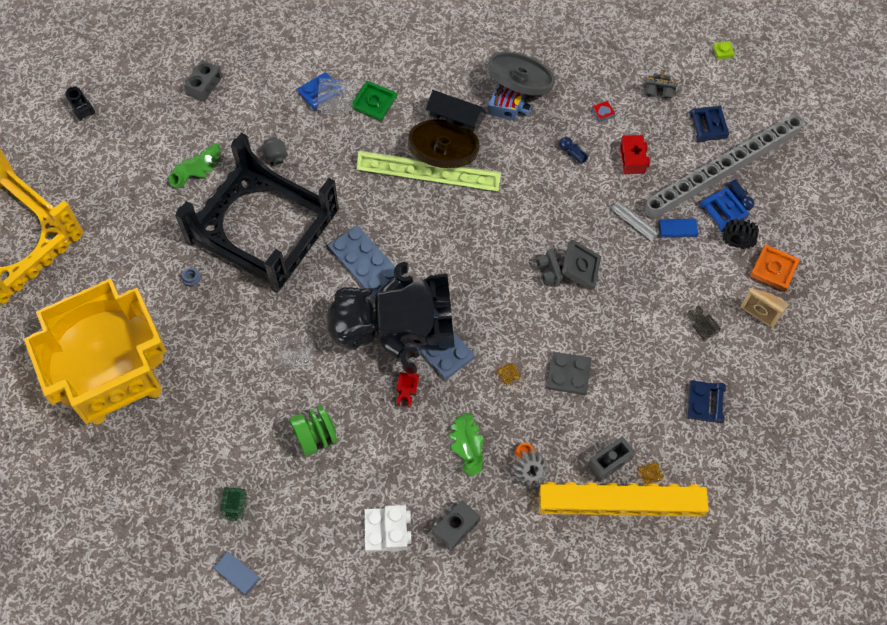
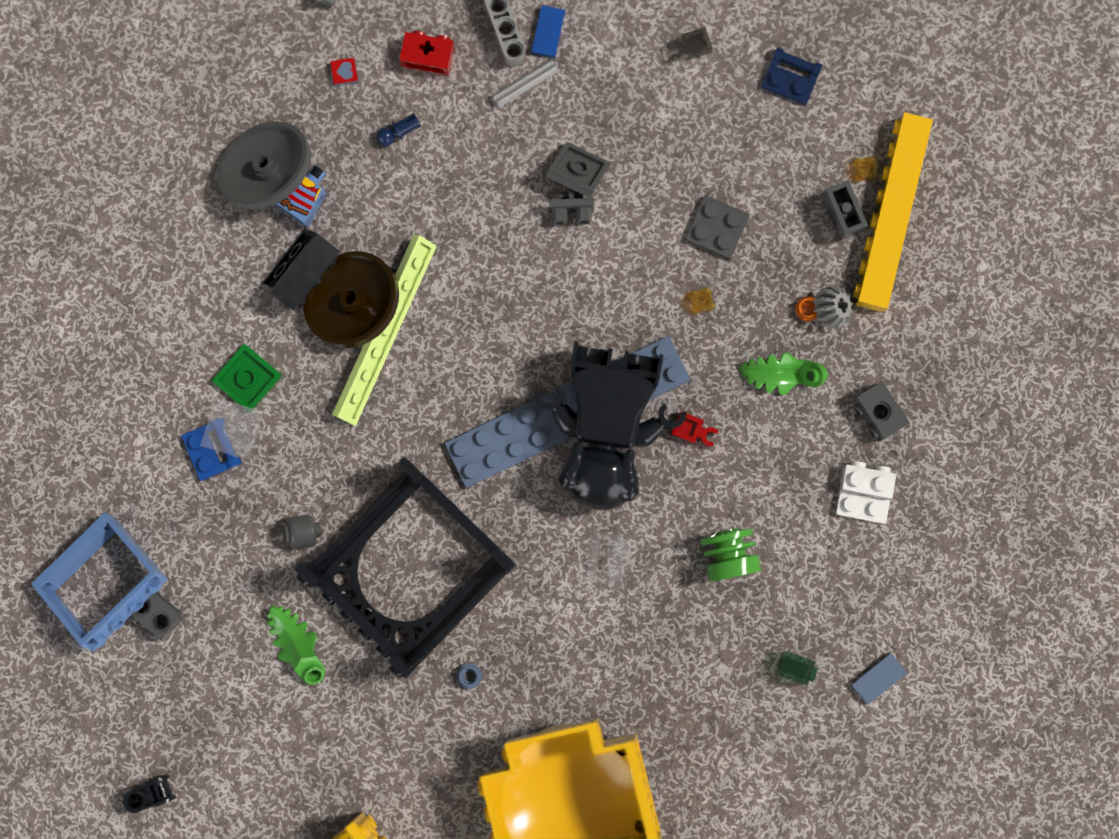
camera: 75 degrees left, 20 degrees up
(209, 20) = (73, 559): none -> medium blue window

